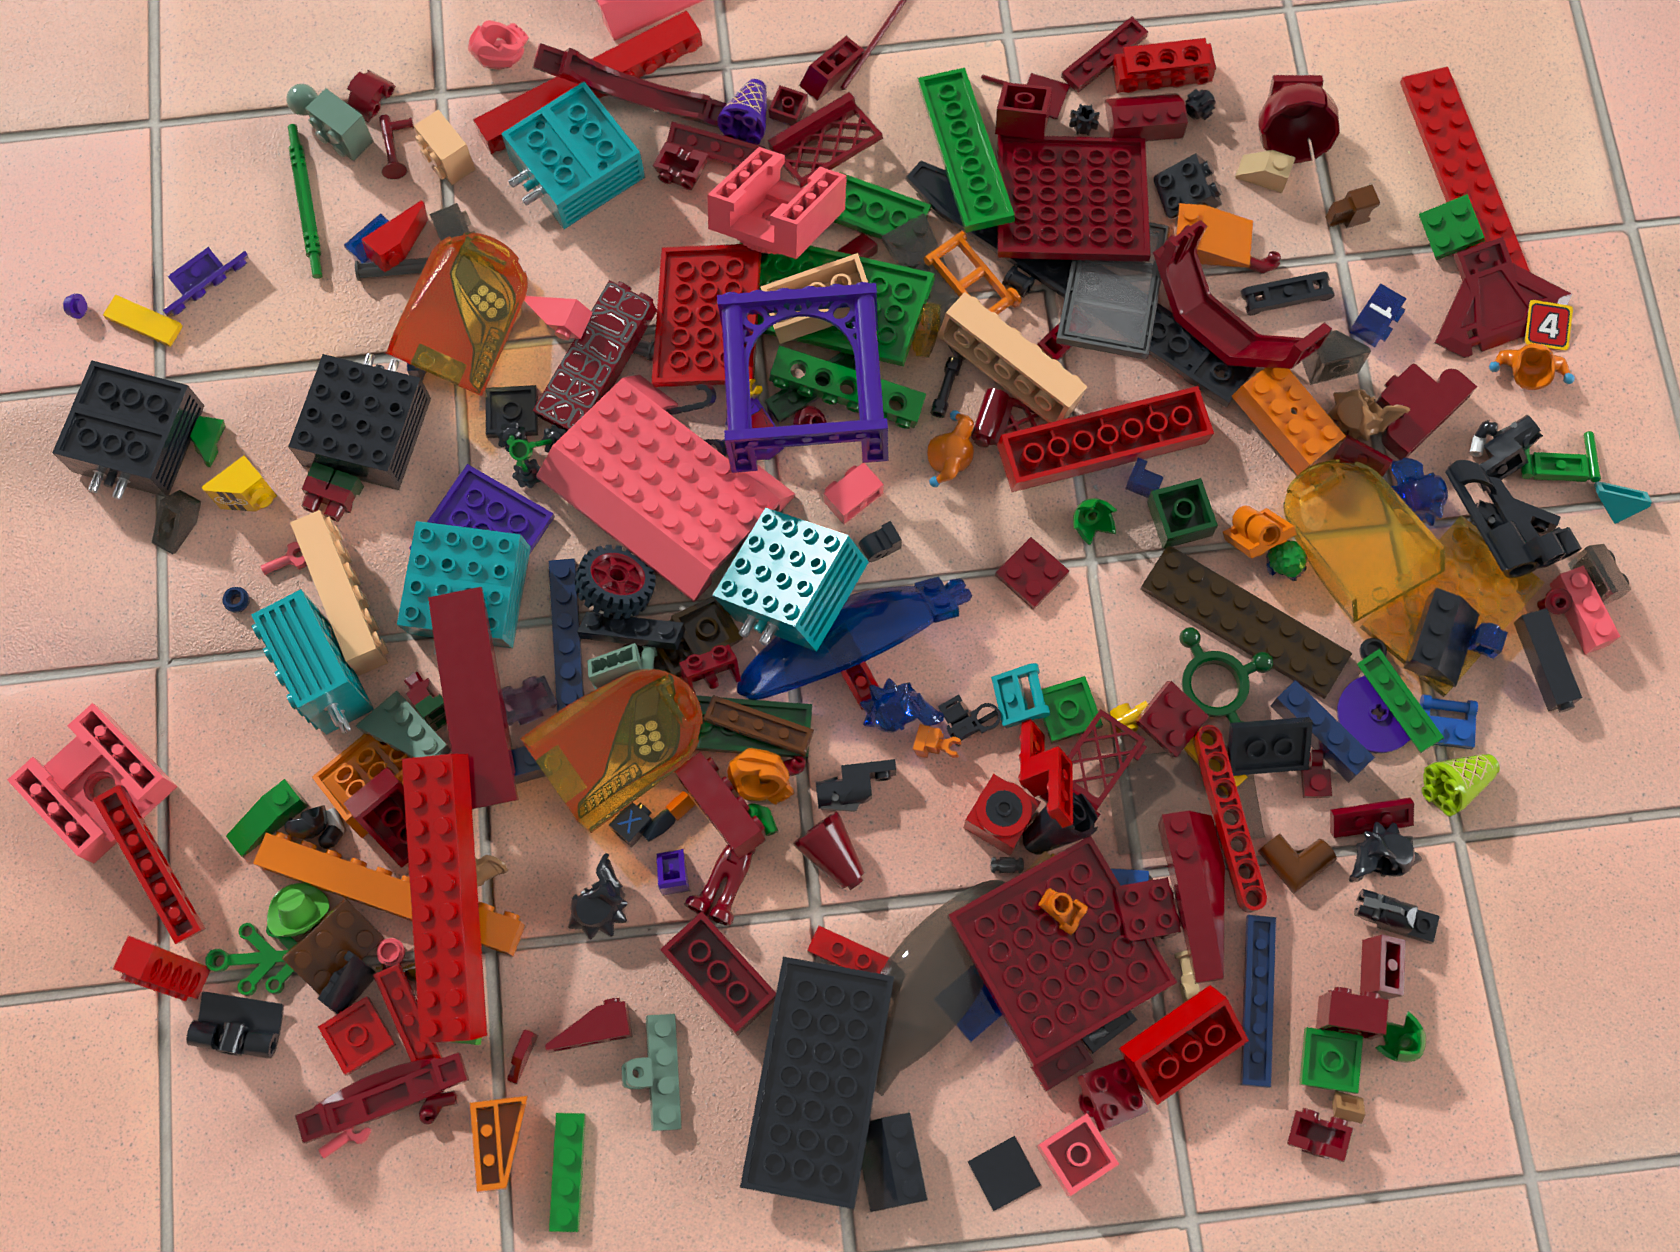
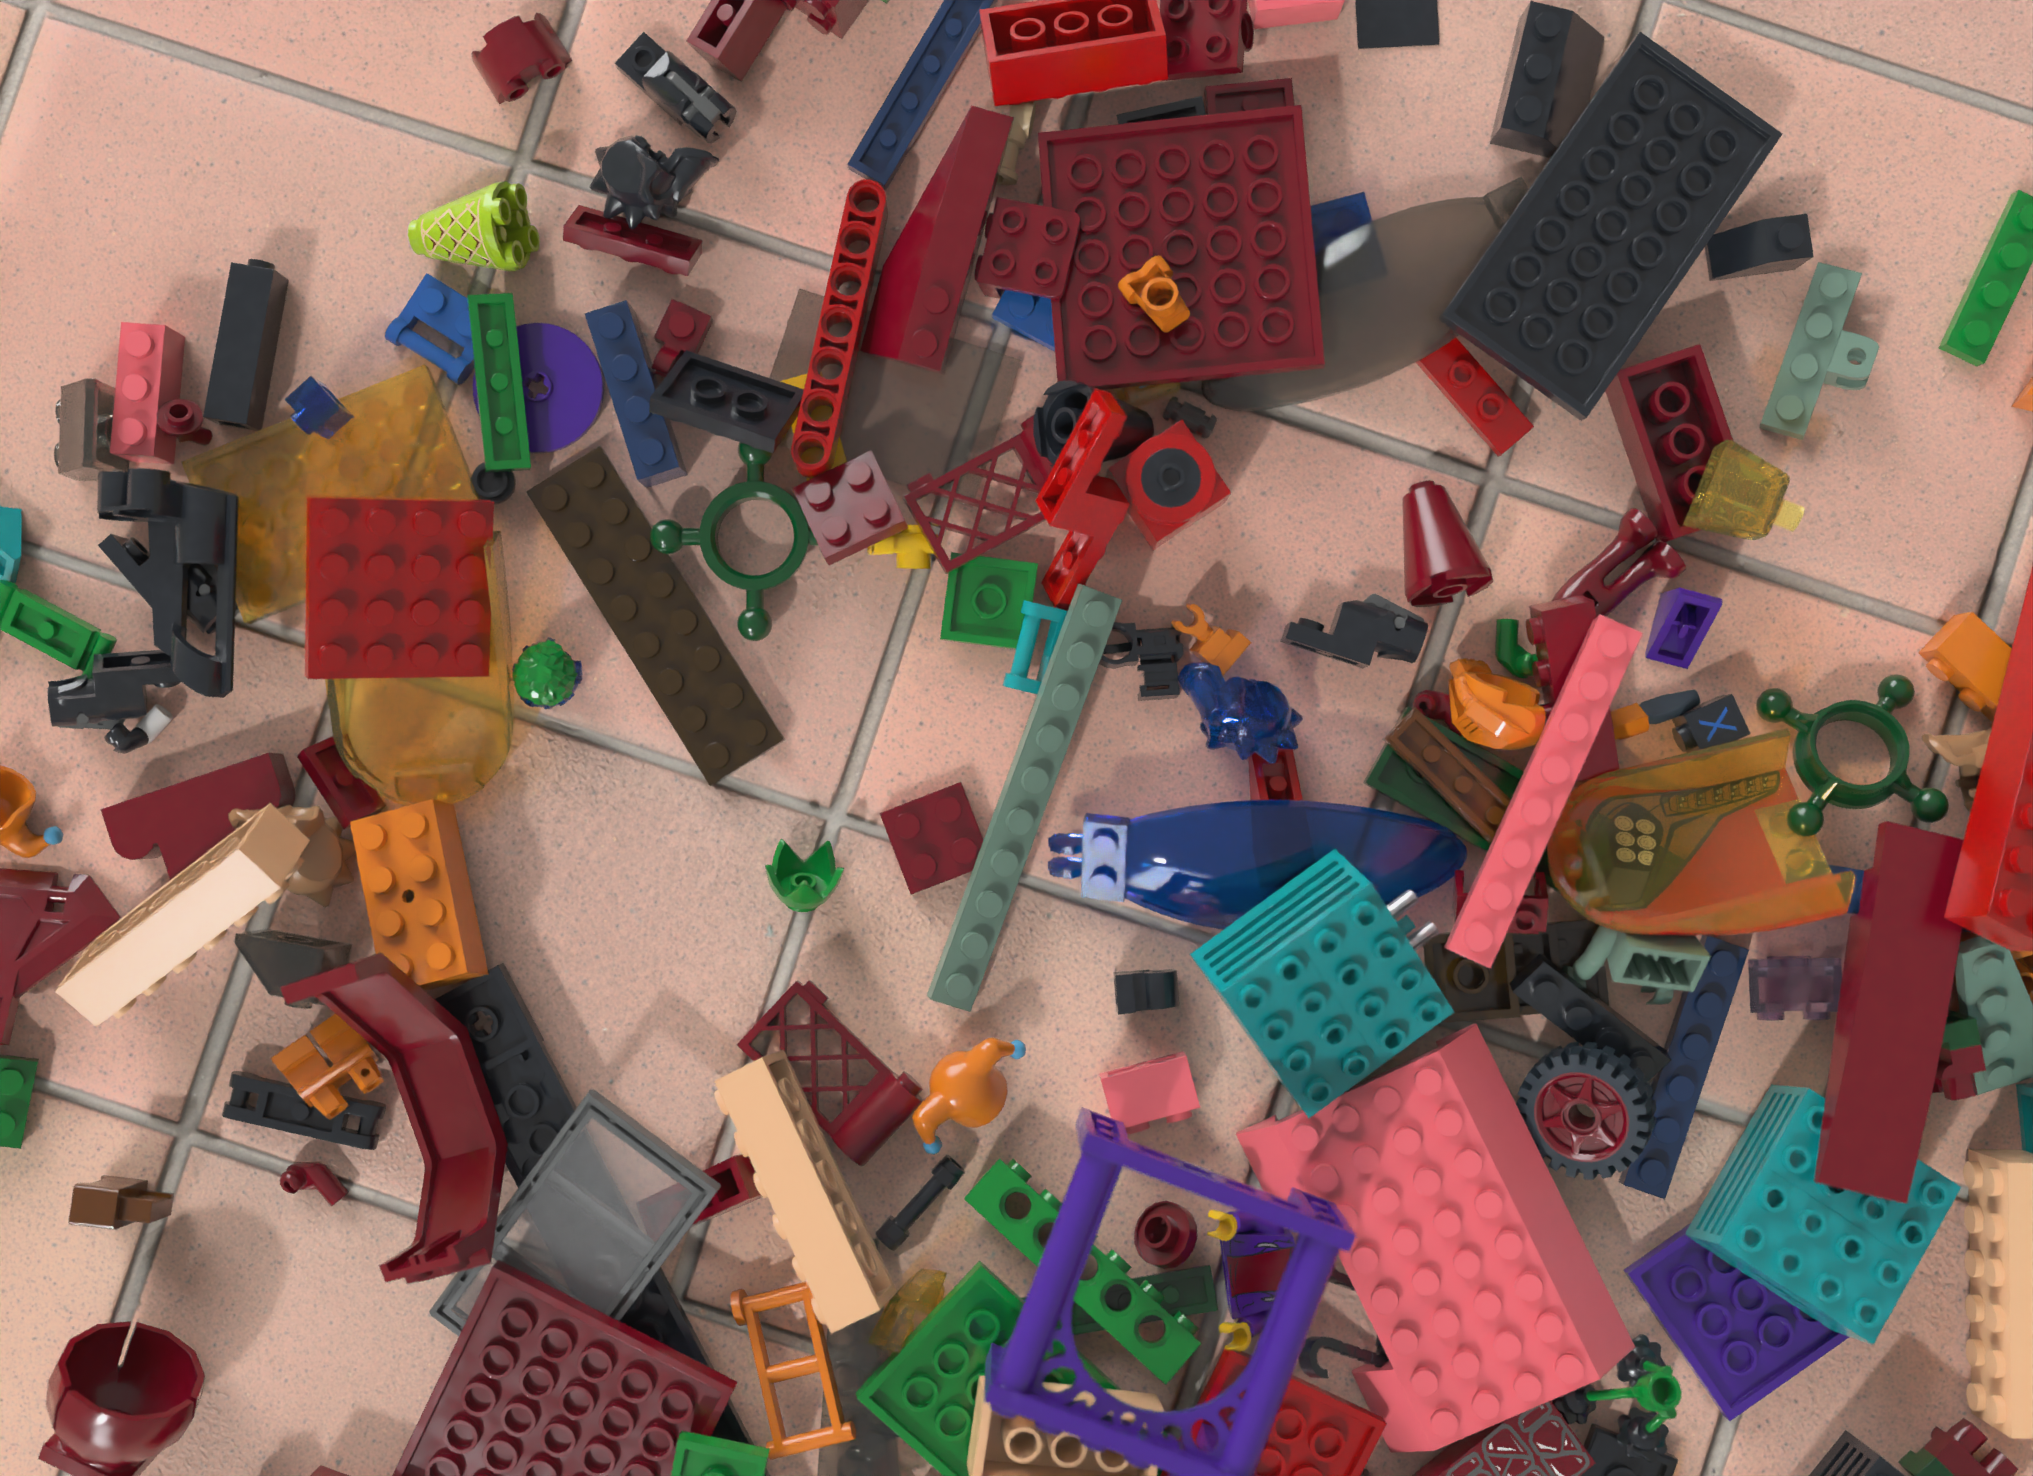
camera: 155 degrees left, 15 degrees up
(491, 829) = (1893, 693): none -> dark green piece
(521, 1055) = (1999, 467): dark red tile -> none
(598, 1026) = (1868, 451): dark red slope -> none
(601, 905) = (1807, 626): black head -> none
(674, 947) = (1742, 495): none -> clear yellow torso
(718, 728) = (1543, 790): none -> coral brick
(721, 1118) = (1760, 248): none -> black slope
(996, 614) = (1024, 797): none -> sand green plate
(1018, 281) = (718, 1330): black bush -> none
(1104, 439) = (721, 993): red brick -> none
(1142, 480) = (691, 904): clear blue panel -> none
(1182, 513) = (665, 820): dark green brick -> none
(1187, 183) = (362, 1370): black bracket -> none
(1225, 239) = (345, 1256): orange slope -> none
(1257, 531) = (566, 737): orange plate -> none
(1266, 169) = (219, 1341): tan slope -> none
(1290, 317) = (313, 1076): none -> orange hips
(1295, 868) = (776, 221): reddish brown brick -> none
(1377, 315) = (184, 1004): clear blue brick -> none
(1390, 559) = (397, 587): none -> red plate
(1401, 348) = (185, 916): none -> light nougat brick
(1420, 492) = (278, 683): clear blue head -> none
(1442, 637) = (385, 441): black slope -> none
(1494, 896) = (519, 53): none -> dark red cylinder

